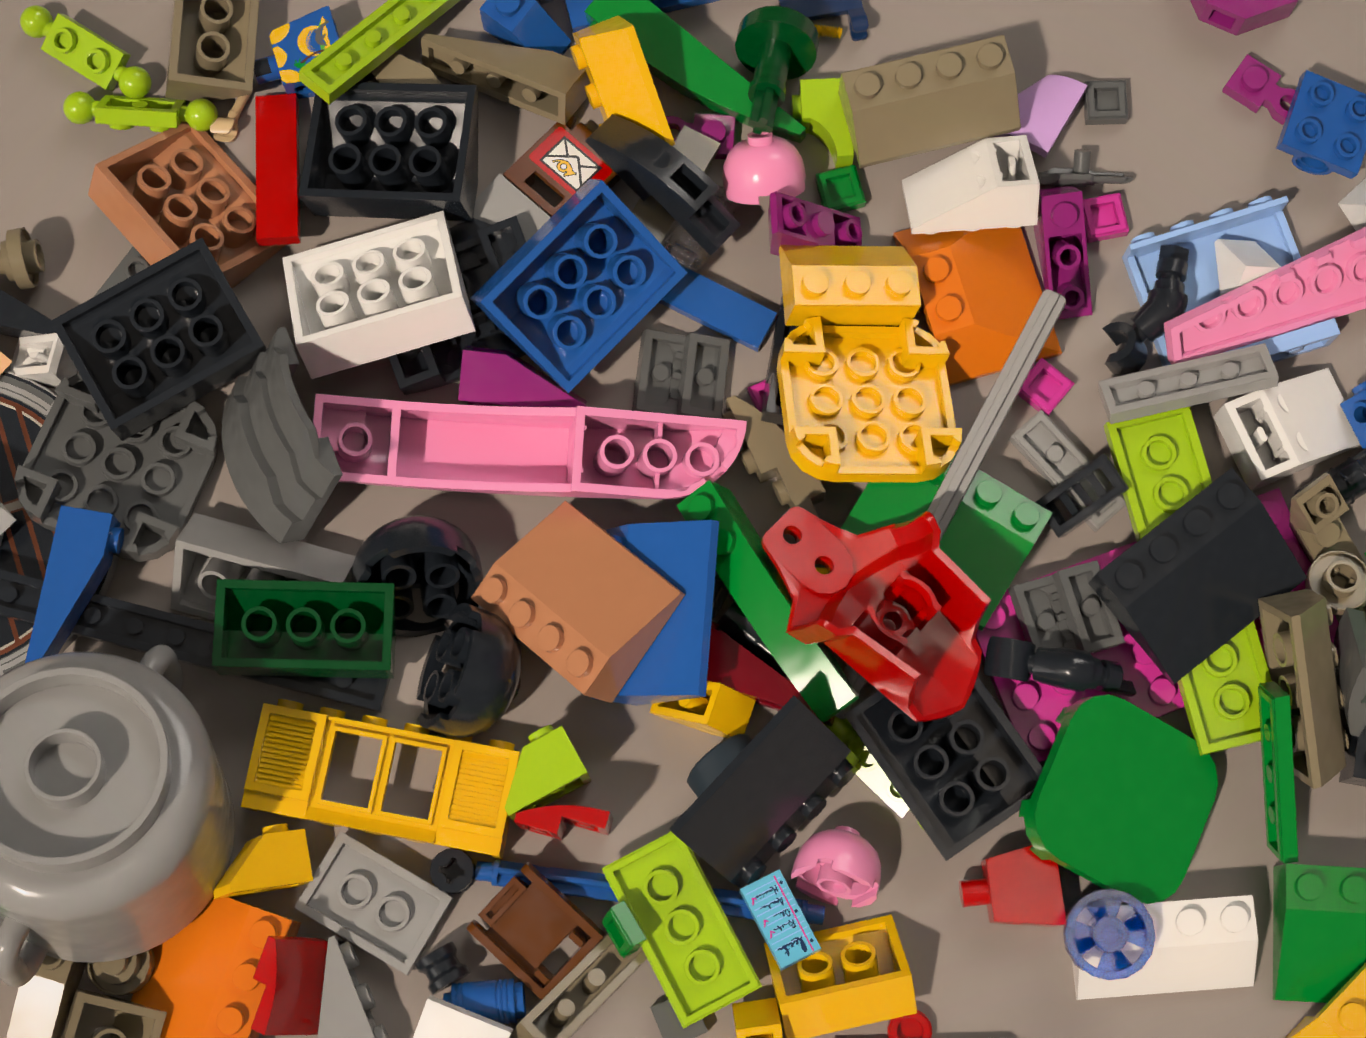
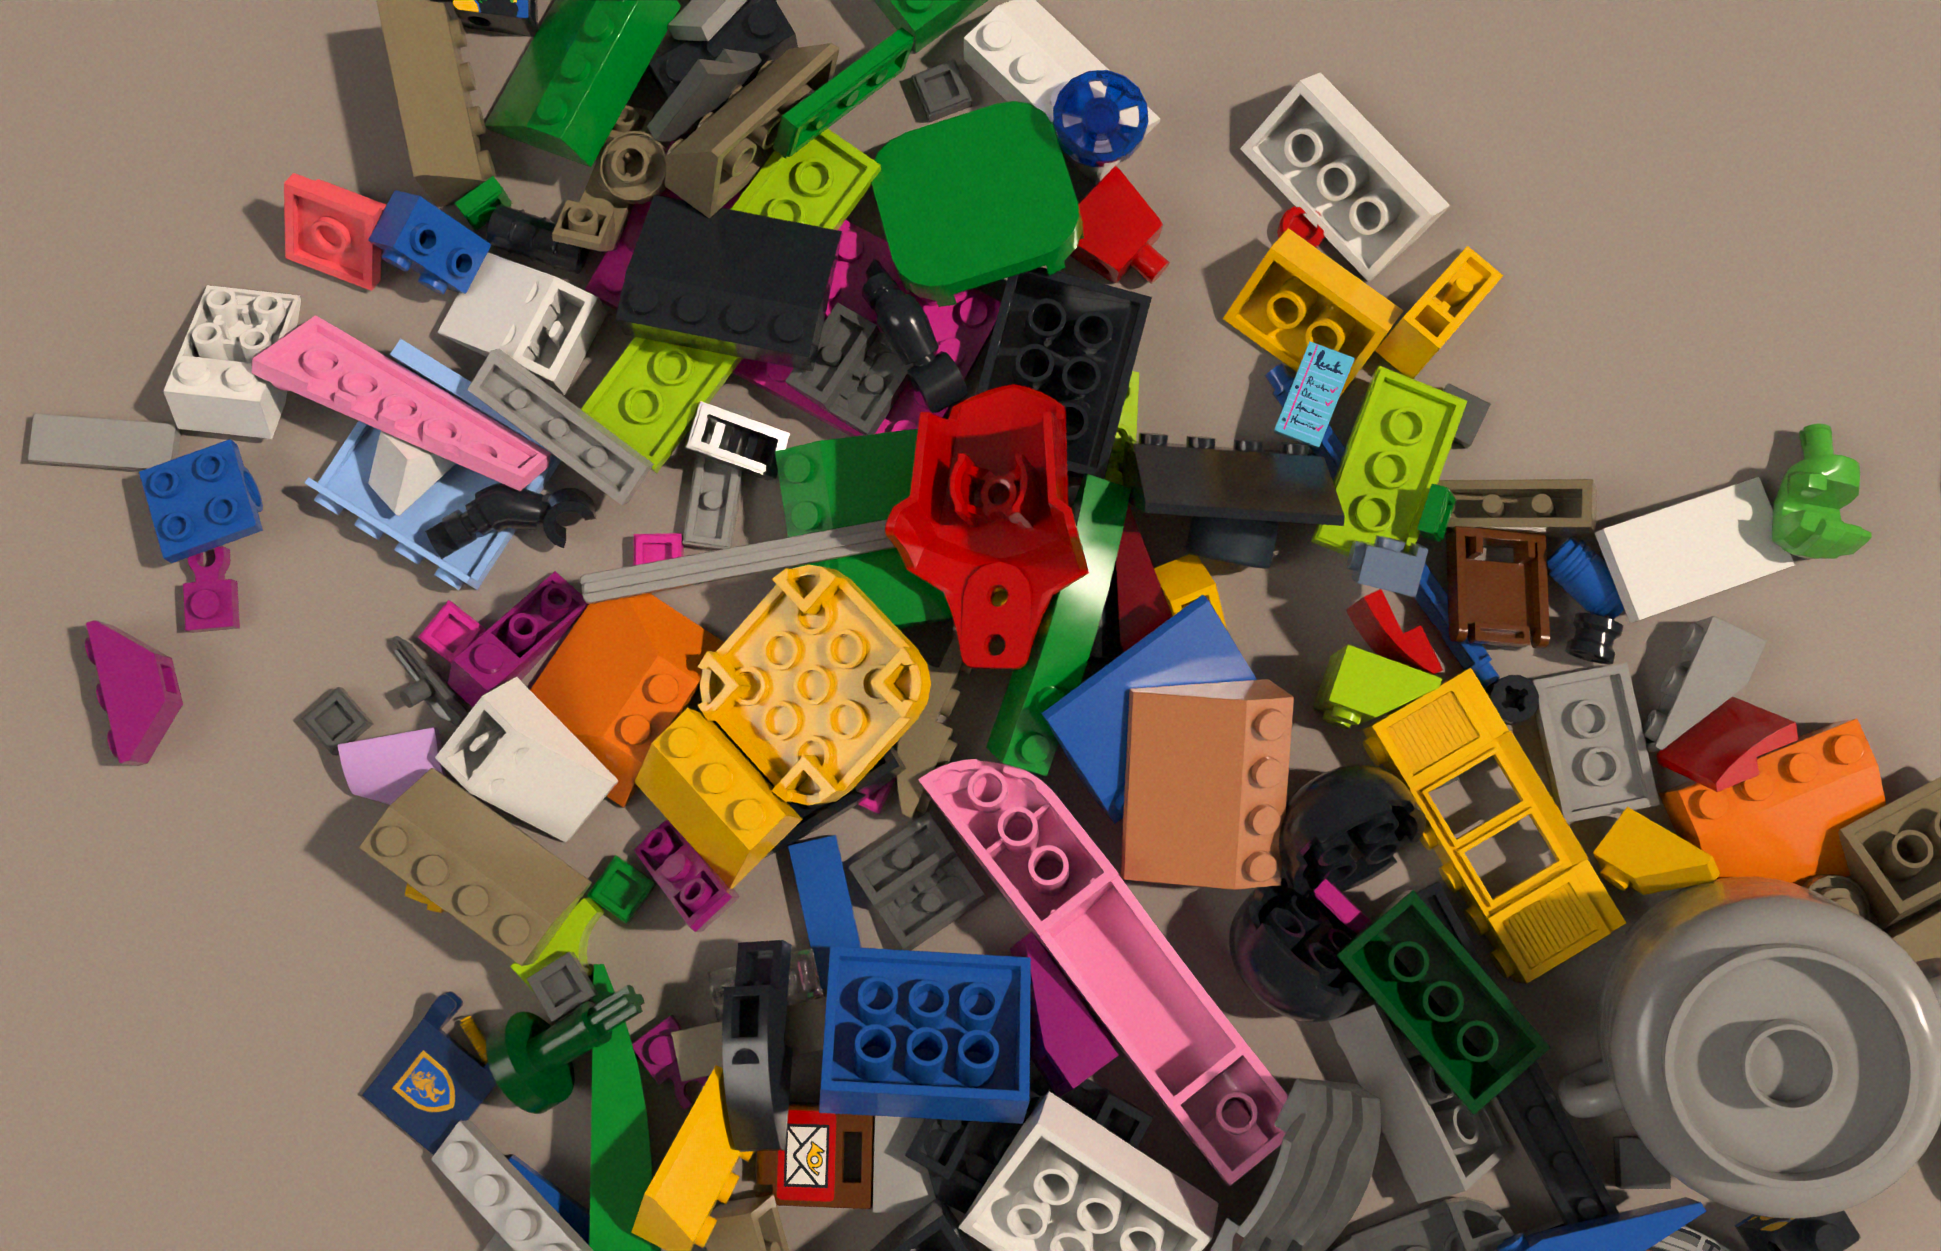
camera: 135 degrees left, 5 degrees up
(421, 629) = (1341, 906): none -> dark pink tile
(617, 853) = (1387, 565): none -> sand blue brick
(762, 167) = (670, 965): bright pink cylinder -> none
(807, 96) = (562, 986): none -> dark grey tile
(839, 866) = (1225, 386): bright pink cylinder -> none
(1228, 859) = (942, 90): none -> dark grey tile

